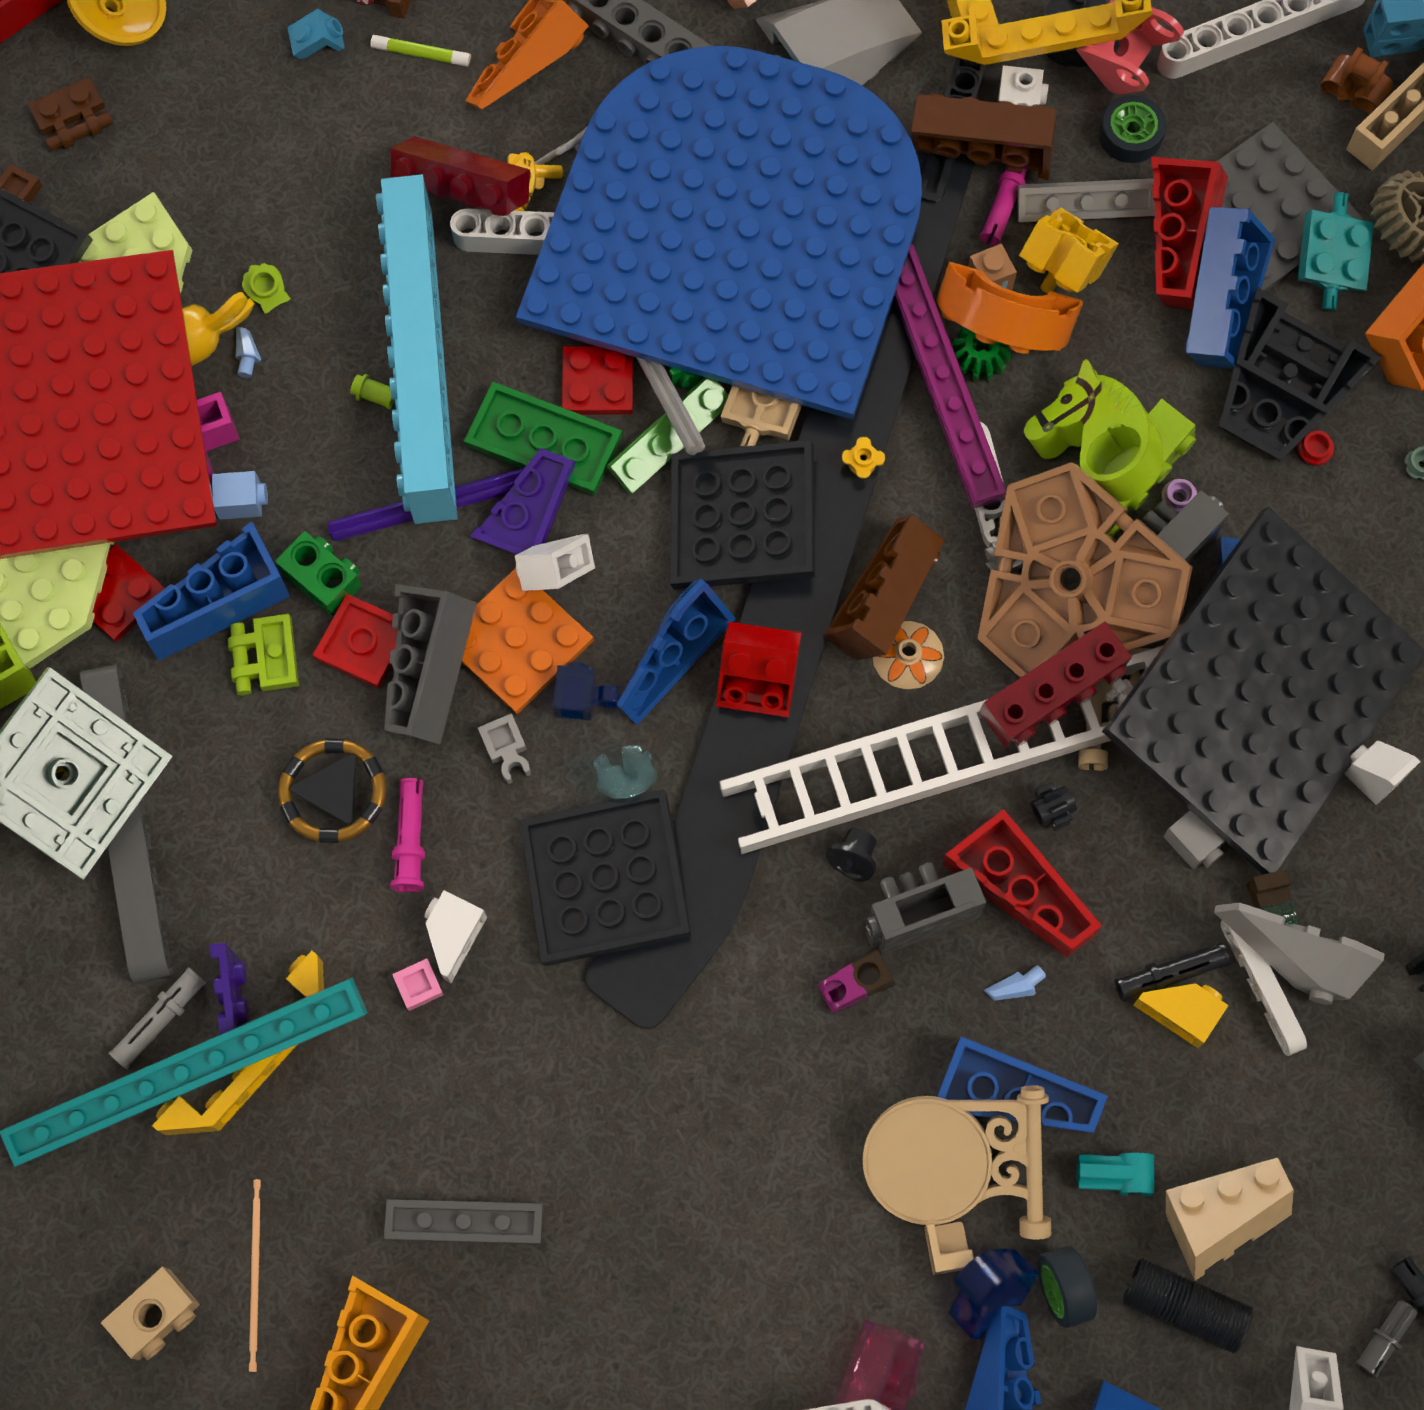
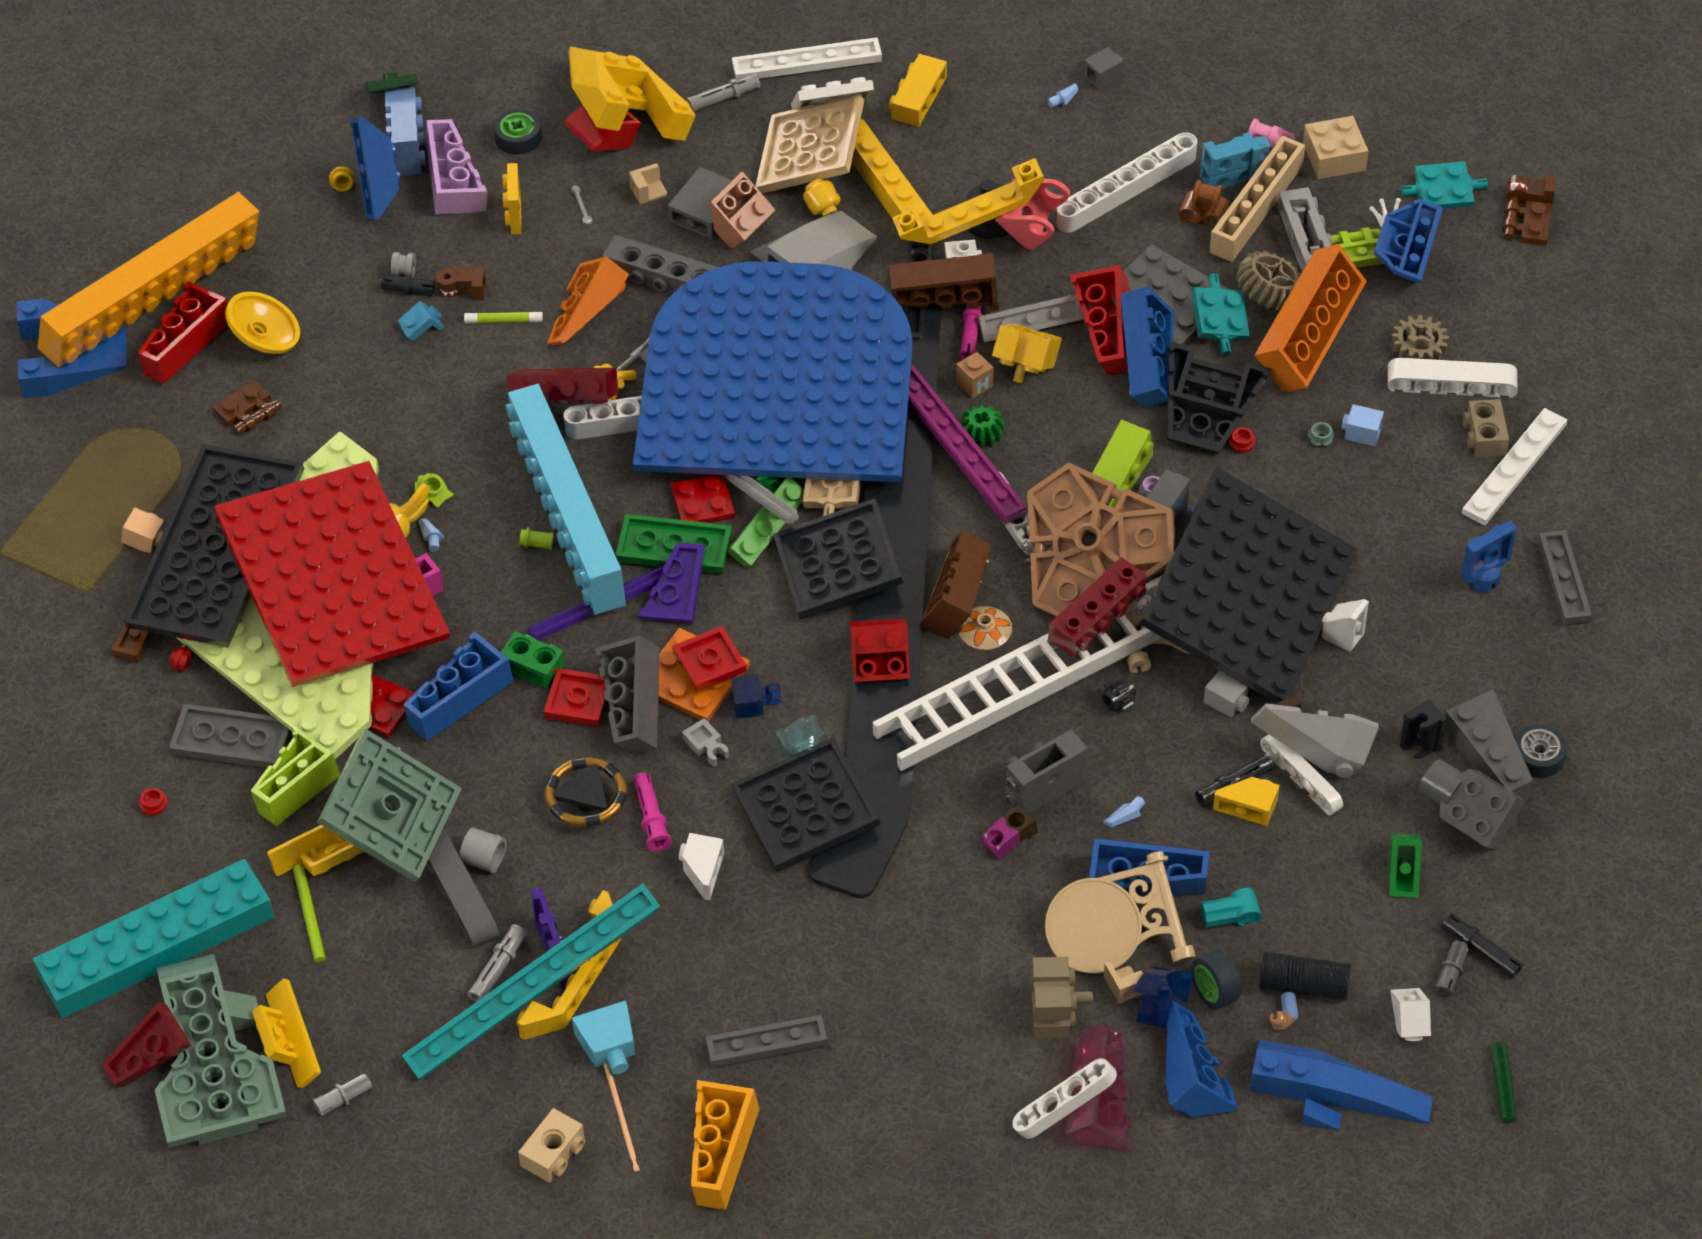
camera: 15 degrees left, 20 degrees down
(181, 846) = (483, 850): none -> light grey piece
(238, 495) = (458, 621): light blue brick -> none
(264, 1166) = (606, 1036): none -> medium azure torso
(275, 654) = (514, 719): lime plate -> none
(417, 984) = (686, 902): bright pink plate -> none
(537, 630) = (709, 658): none -> red plate
(554, 563) = (707, 615): white slope -> none
(681, 639) = (816, 645): blue wedge -> none
(848, 1263) = (1054, 997): none -> dark tan brick
(854, 855) = (983, 755): black piece -> none
(859, 467) = (911, 509): yellow plate -> none
(1005, 315) = (993, 392): orange brick -> none
(1024, 884) = (1117, 745): red wedge -> none
(1102, 420) = (1084, 444): lime animal -> none
(1144, 118) = (1050, 267): wheel -> none
(1149, 1353) = (1288, 1015): none -> arm
(1227, 1211) = (1315, 909): tan wedge -> none
(1365, 1161) = (1404, 865): none -> green slope

